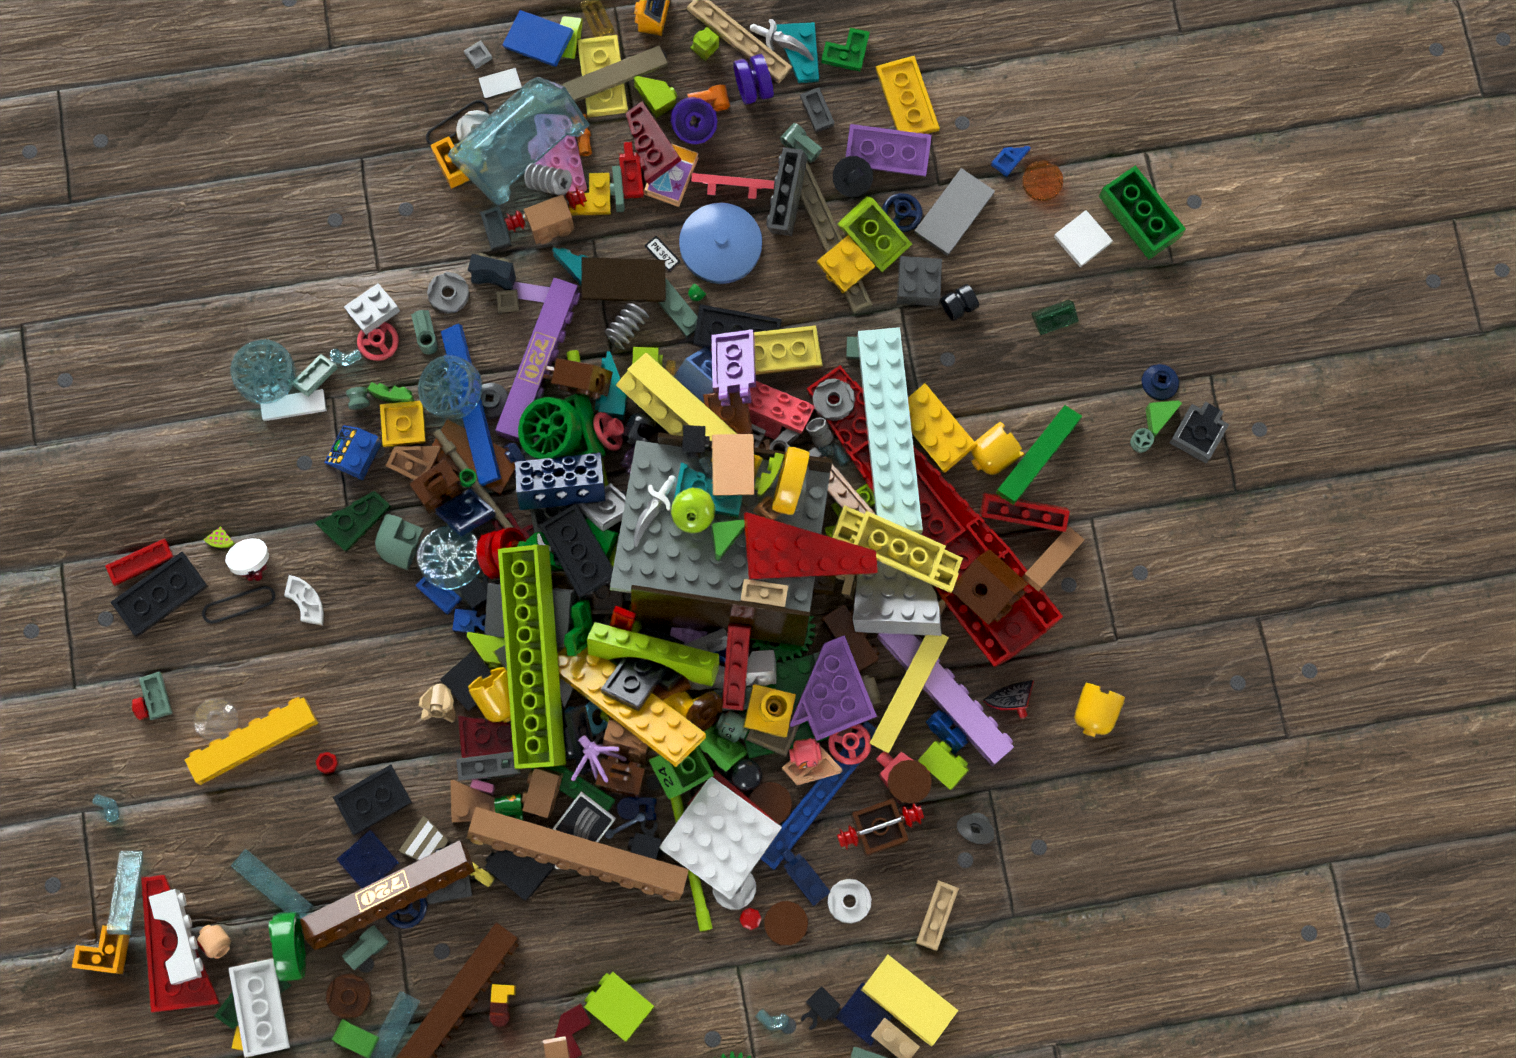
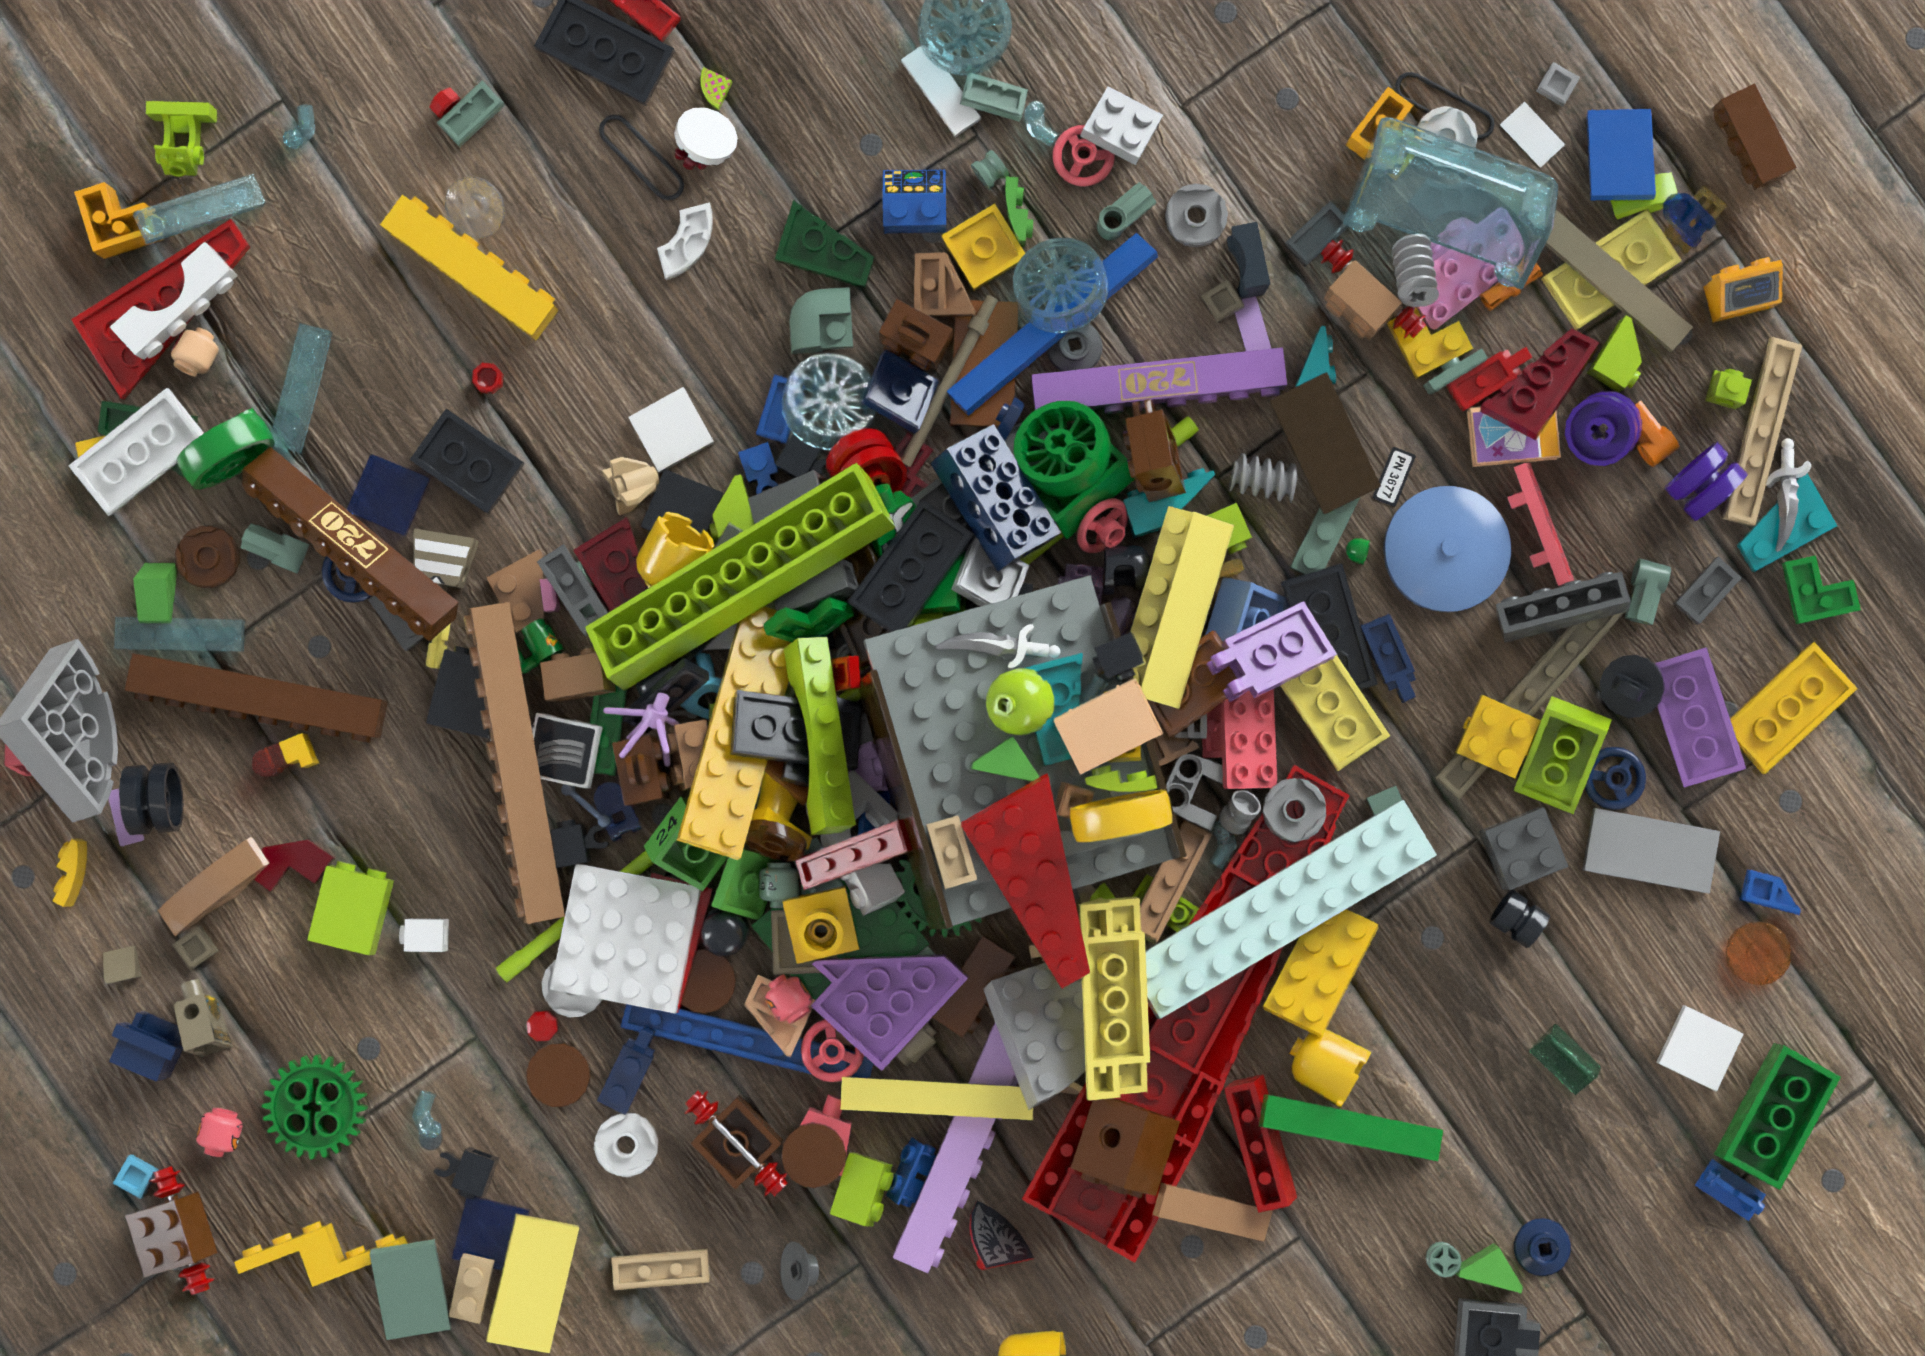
camera: 70 degrees right, 10 degrees up
(60, 881) = (180, 119): none -> lime tile
(417, 664) = (671, 430): none -> white tile
(464, 475) = (948, 365): green hinge -> none
(588, 19) = (1680, 210): none -> clear blue plate
(657, 966) = (424, 935): none -> white brick
(769, 304) = (1390, 656): none -> dark blue hinge
(1174, 259) = (1731, 1190): none -> blue hinge

